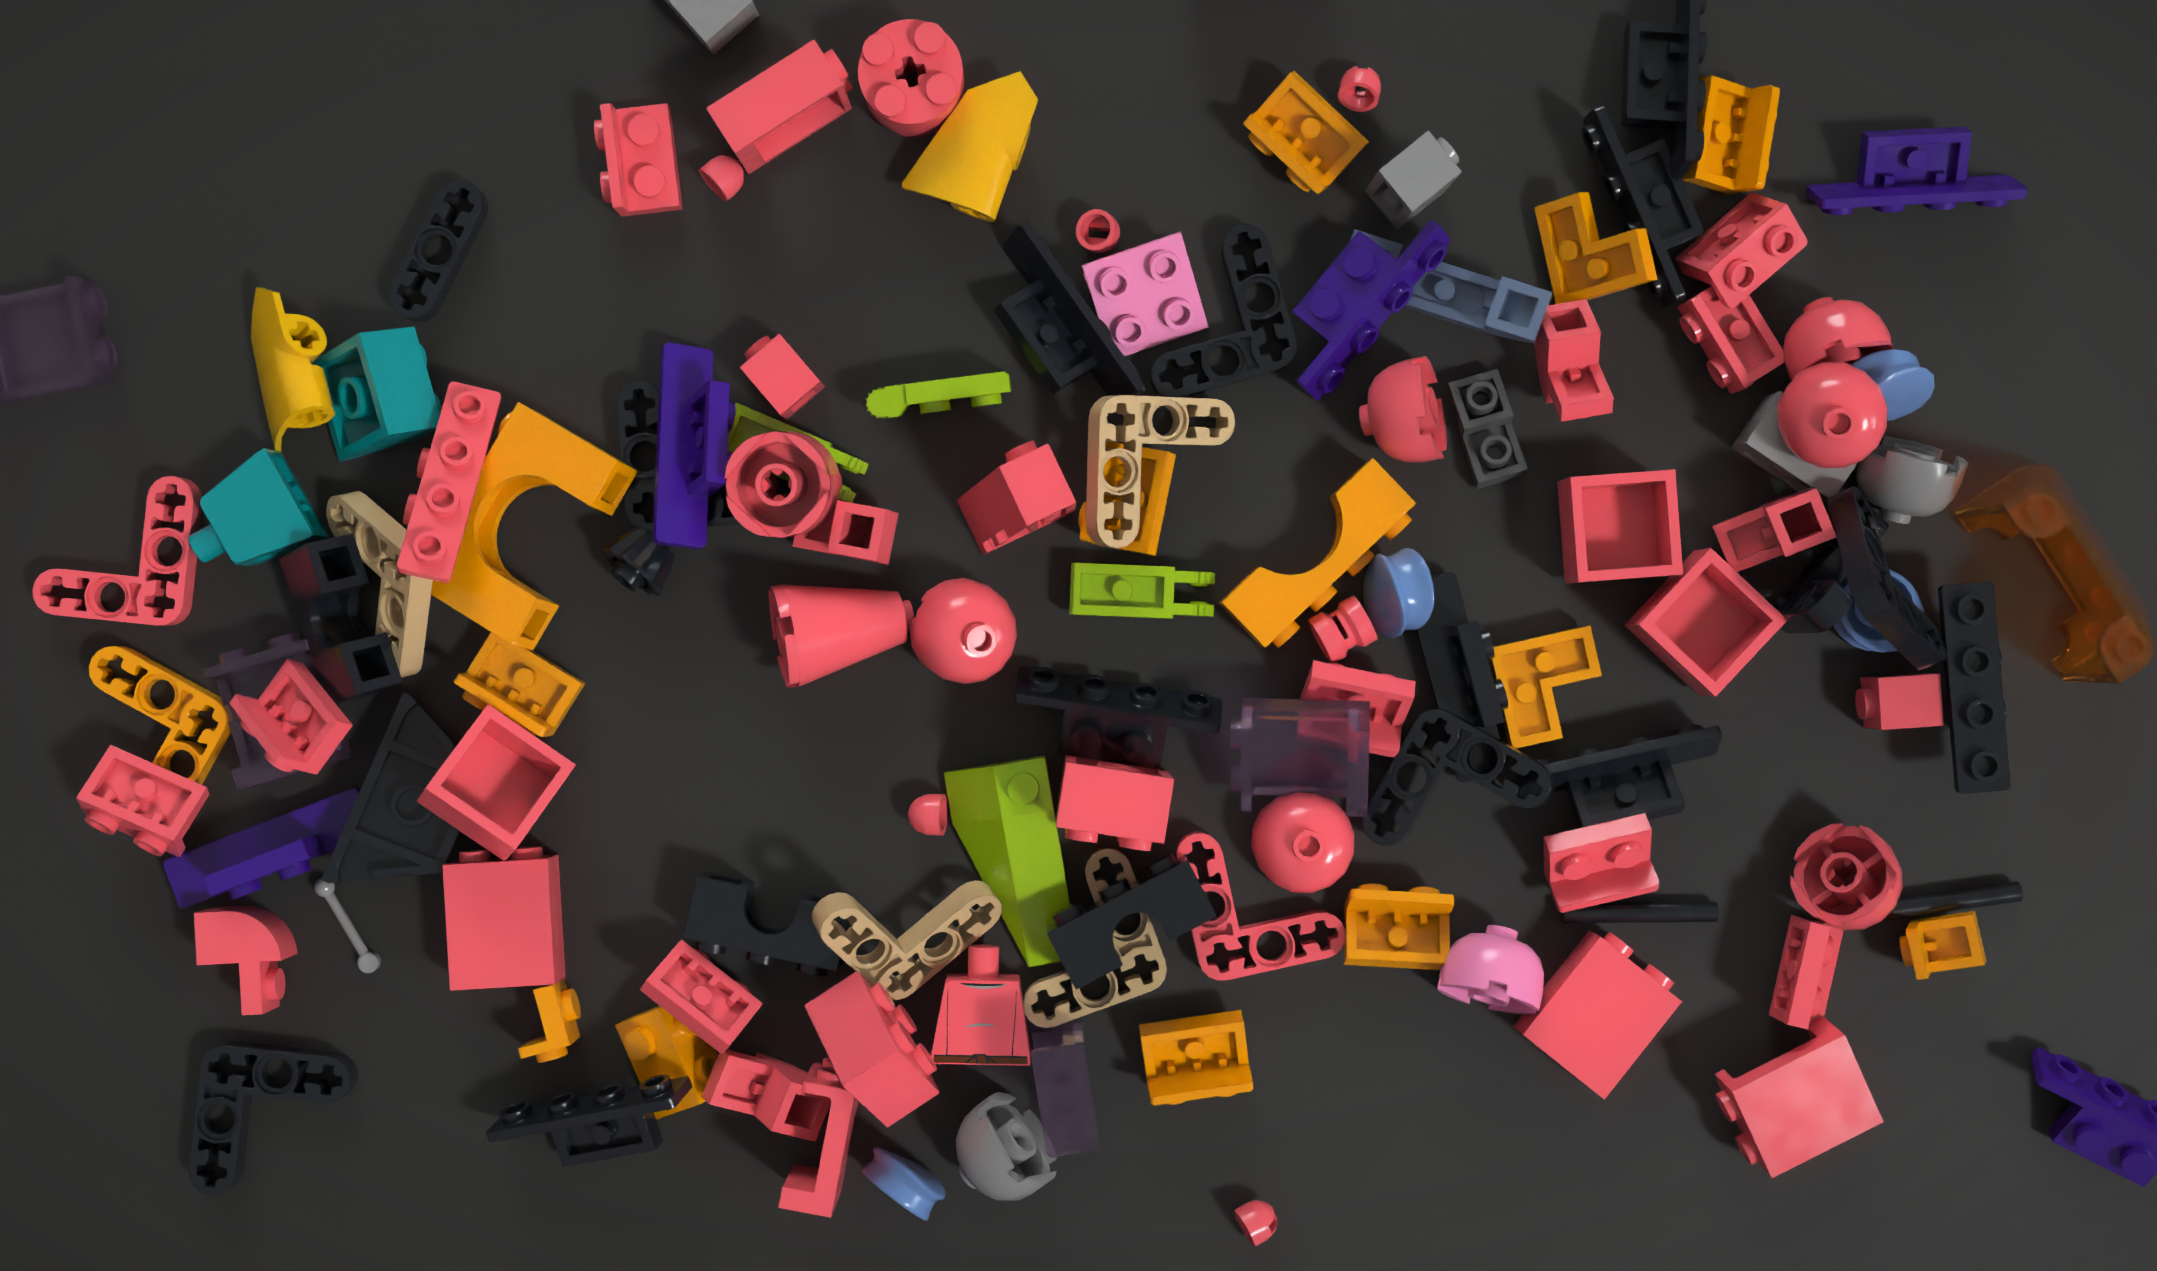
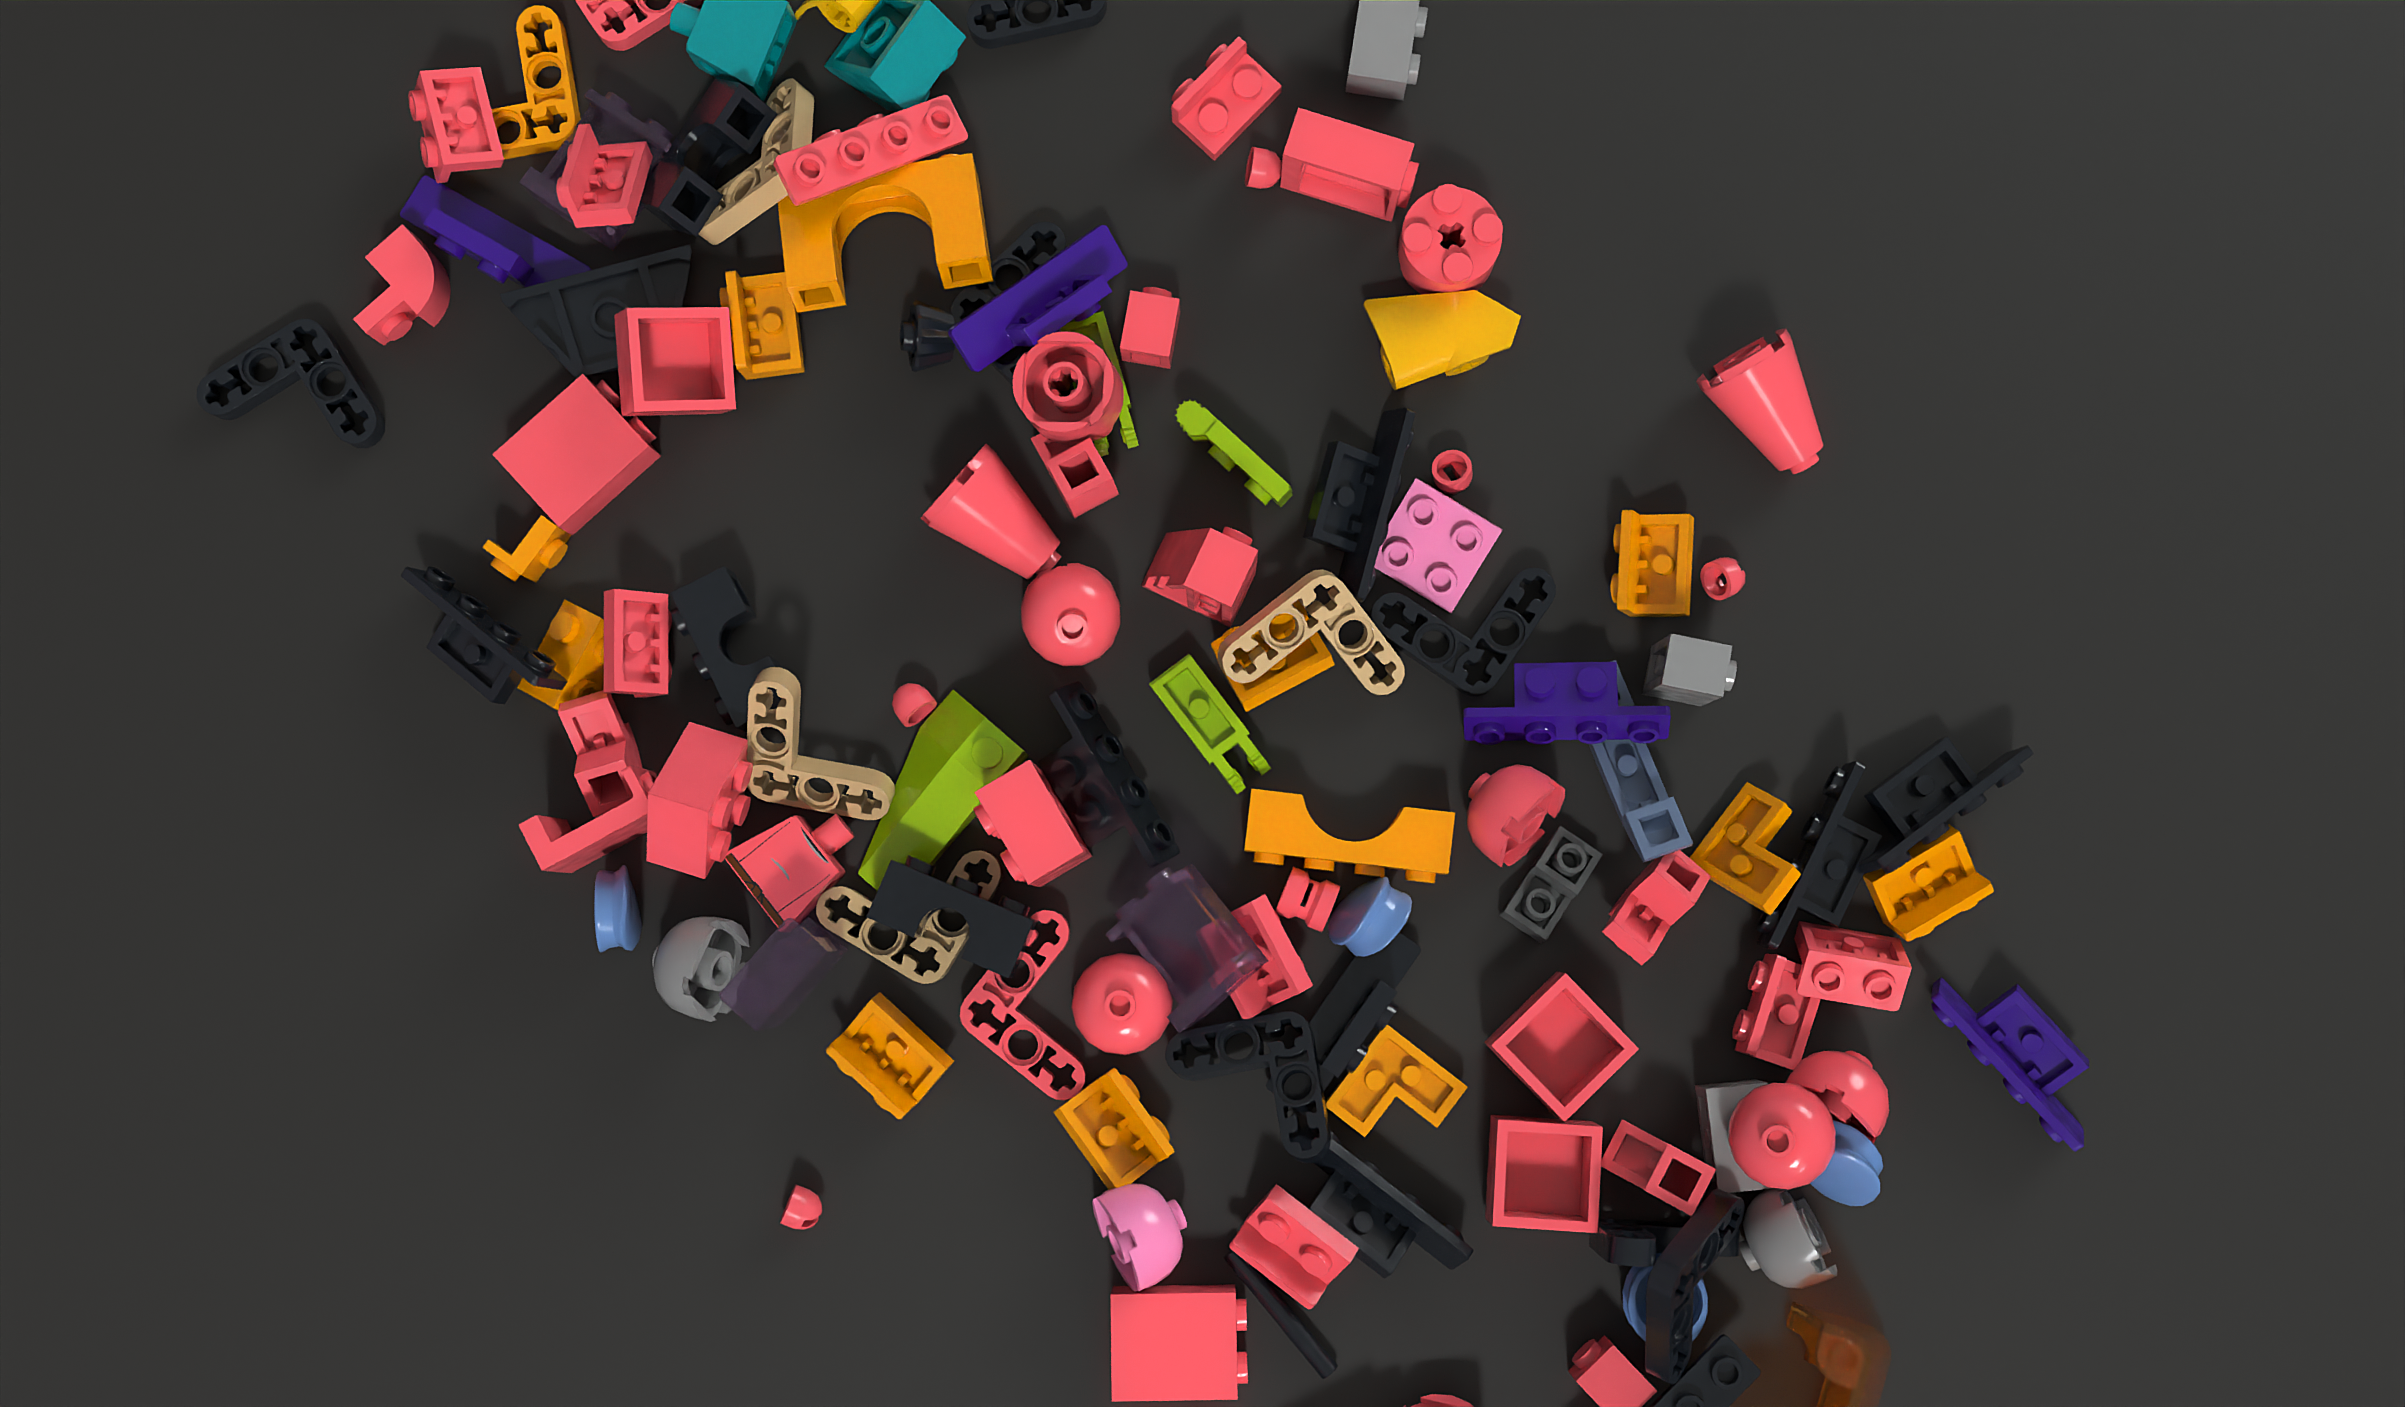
camera: 50 degrees right, 5 degrees down
(368, 960) = (468, 381): light grey hinge -> none

